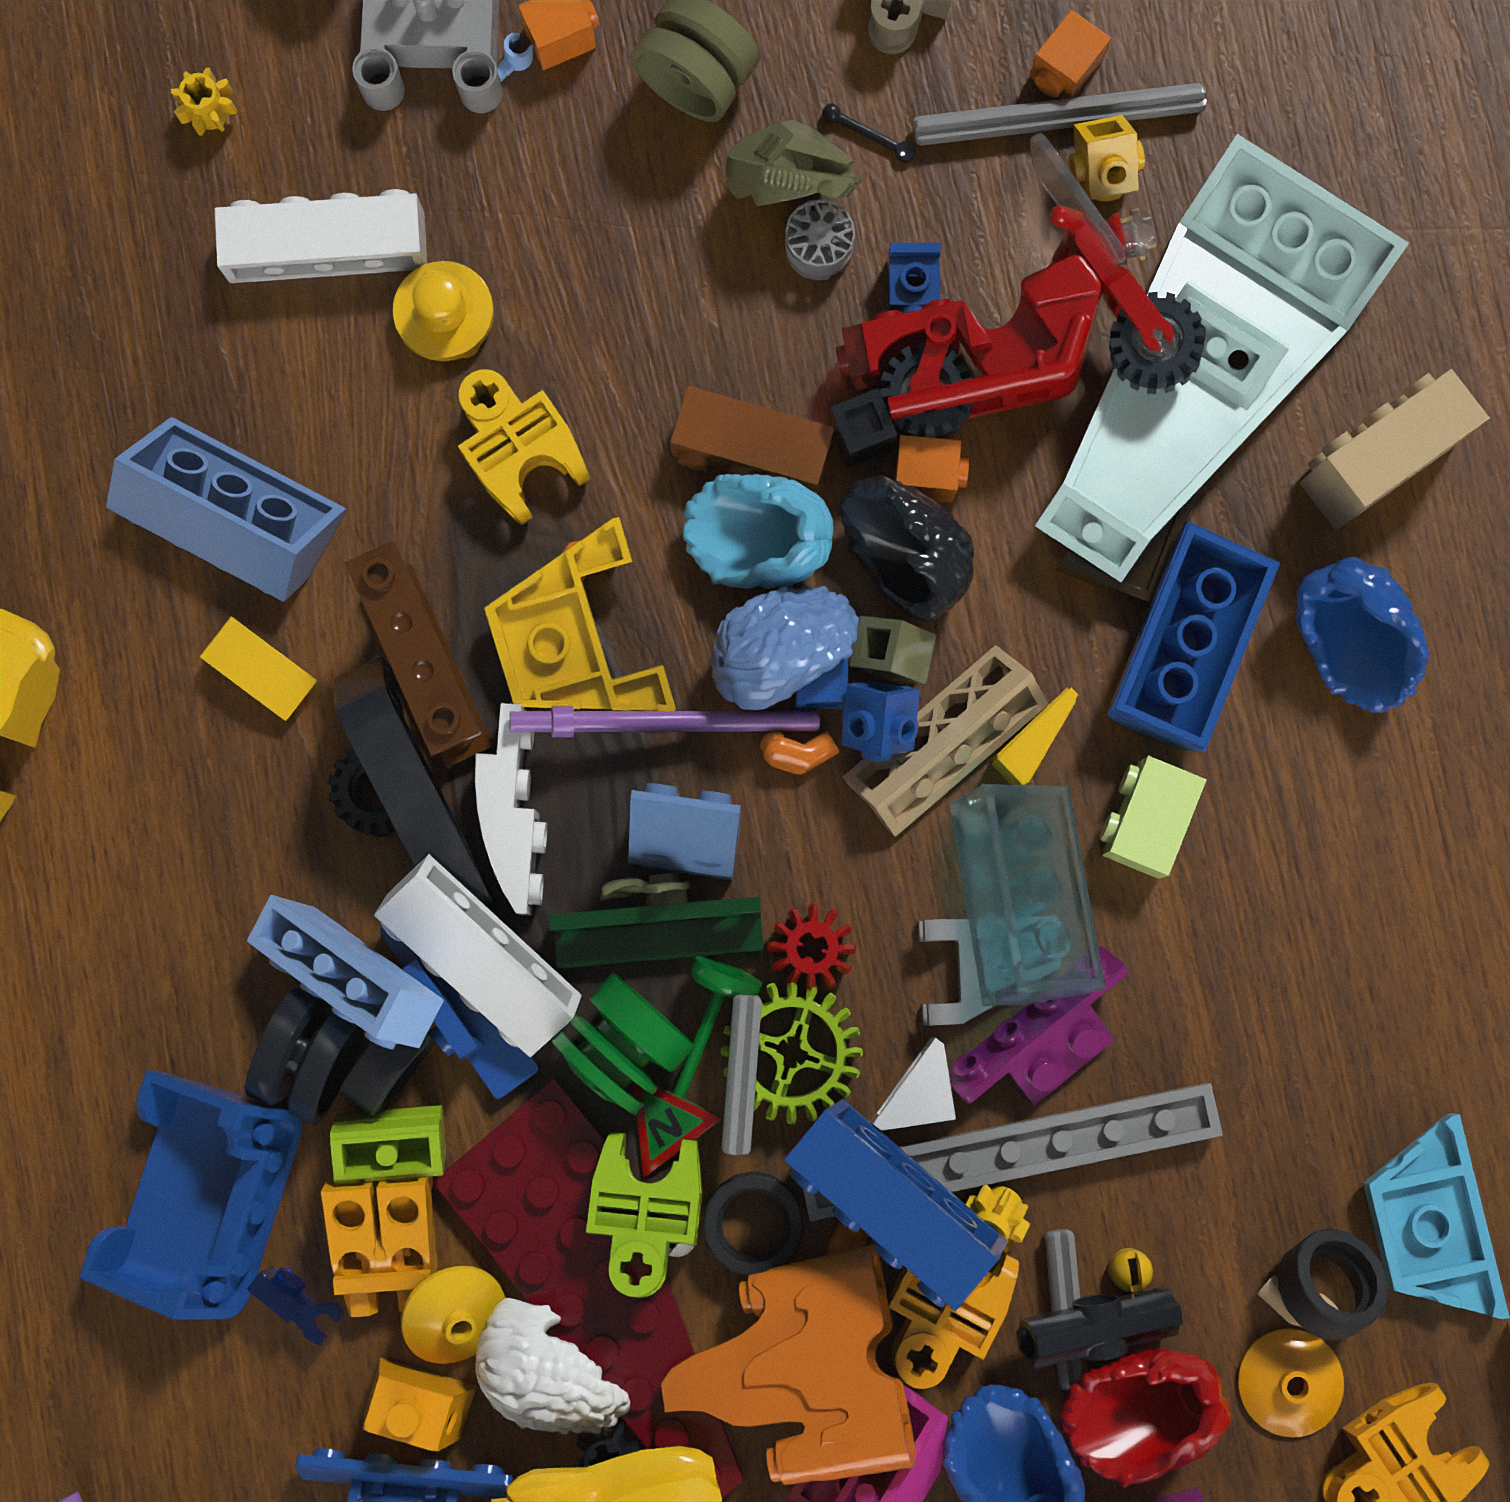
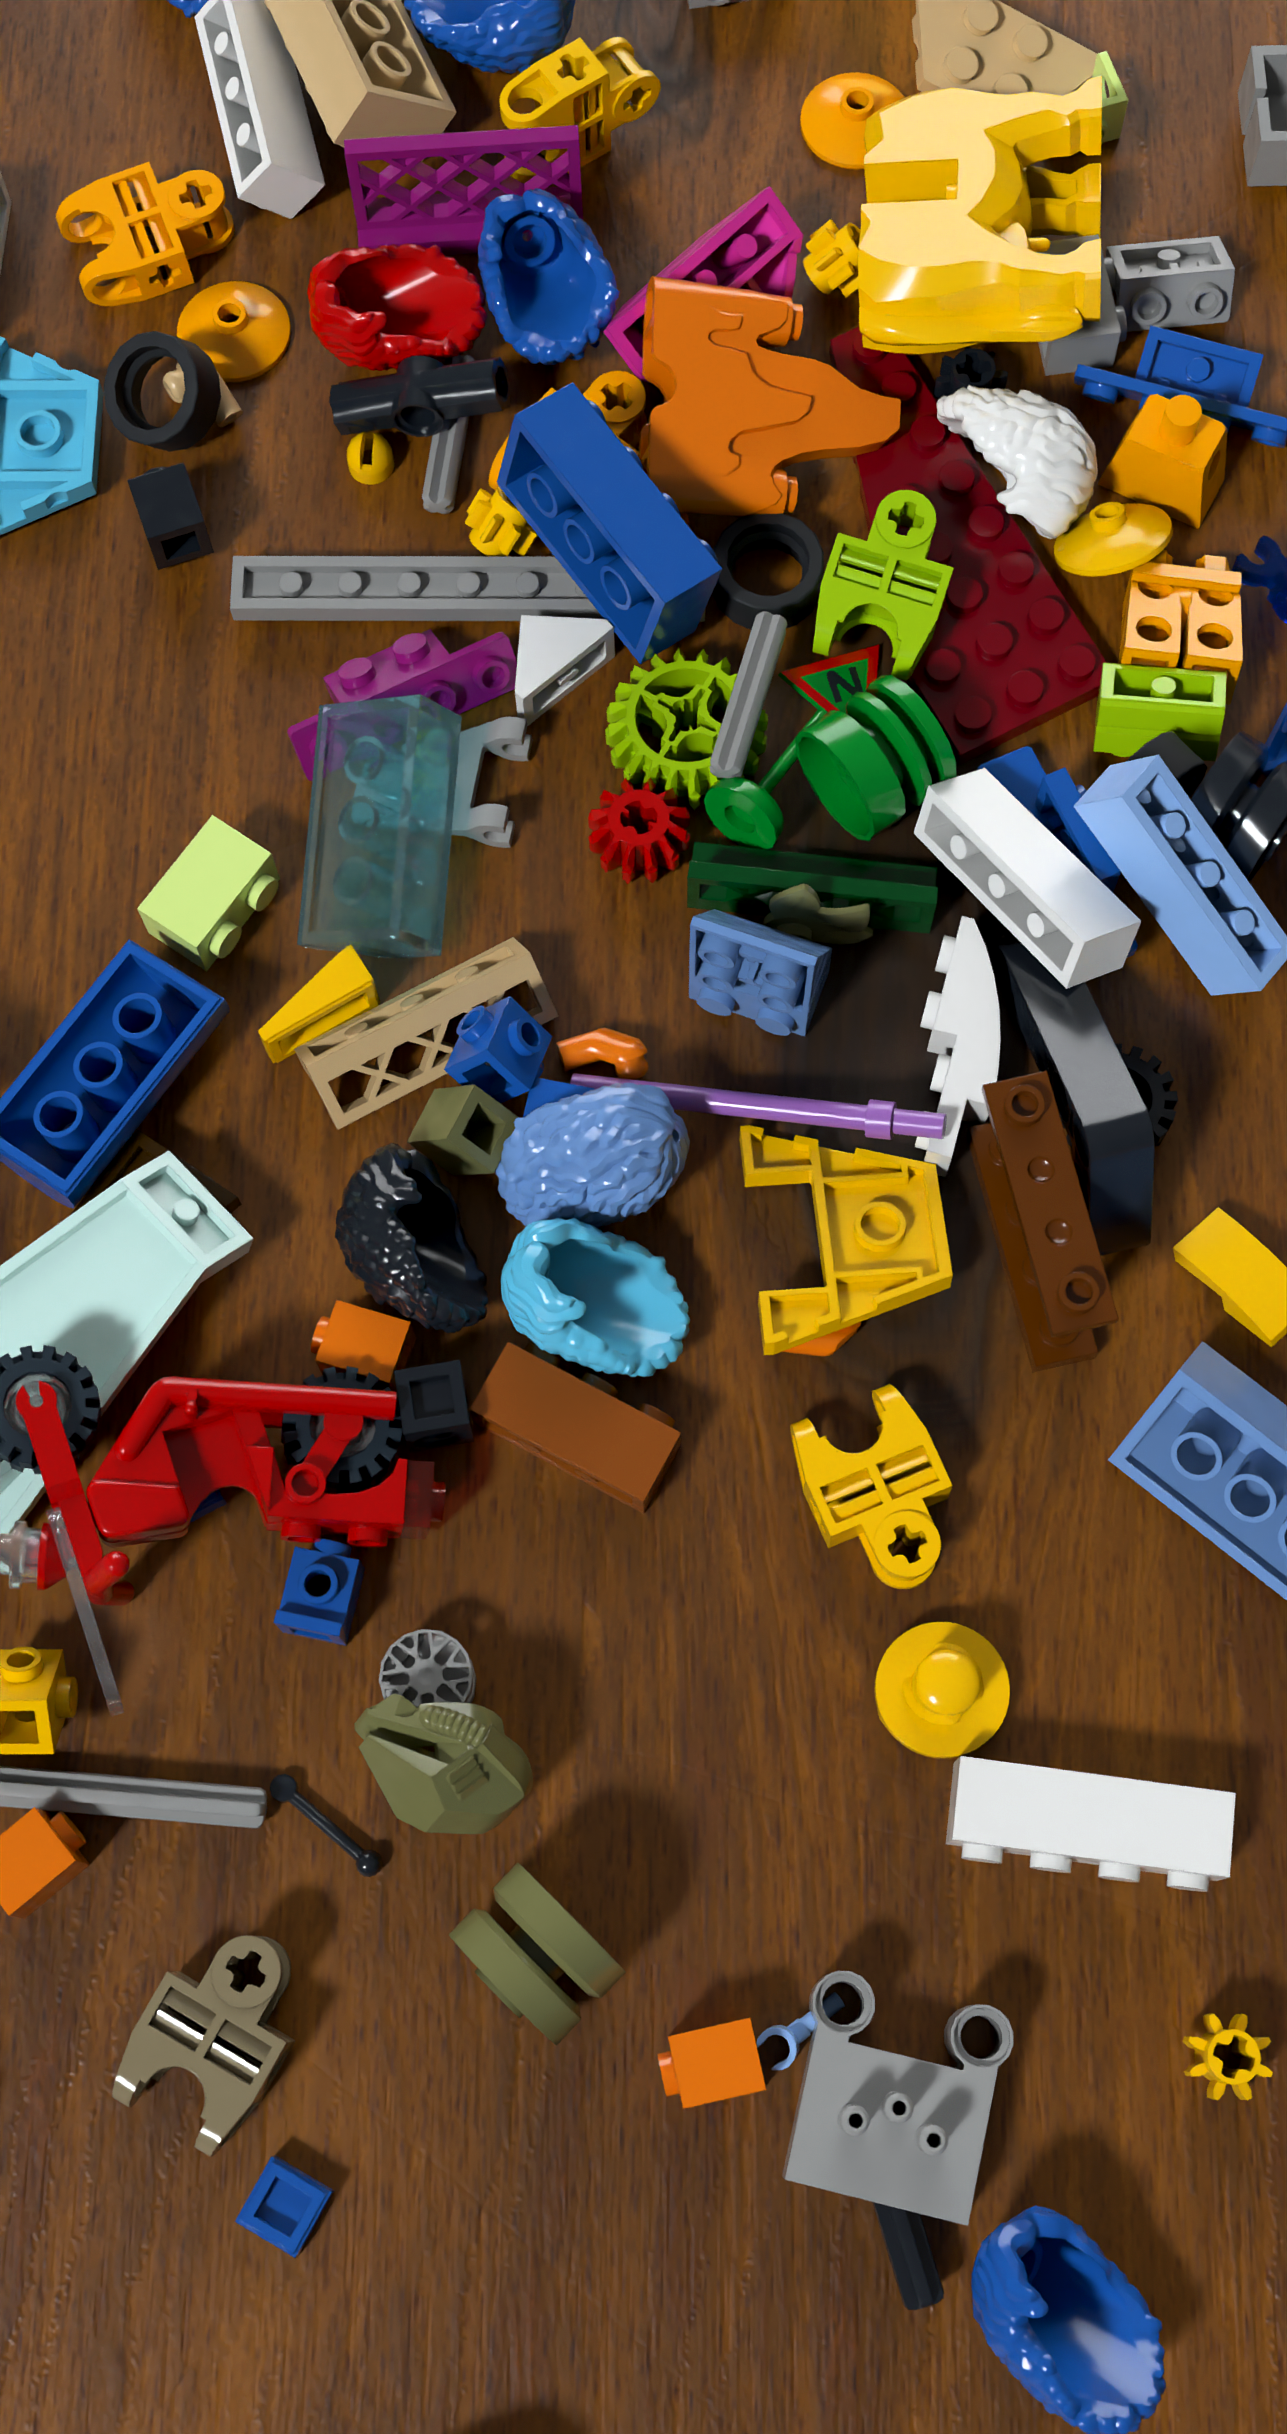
camera: 165 degrees left, 10 degrees down
(1289, 1162) = (170, 515): none -> black brick

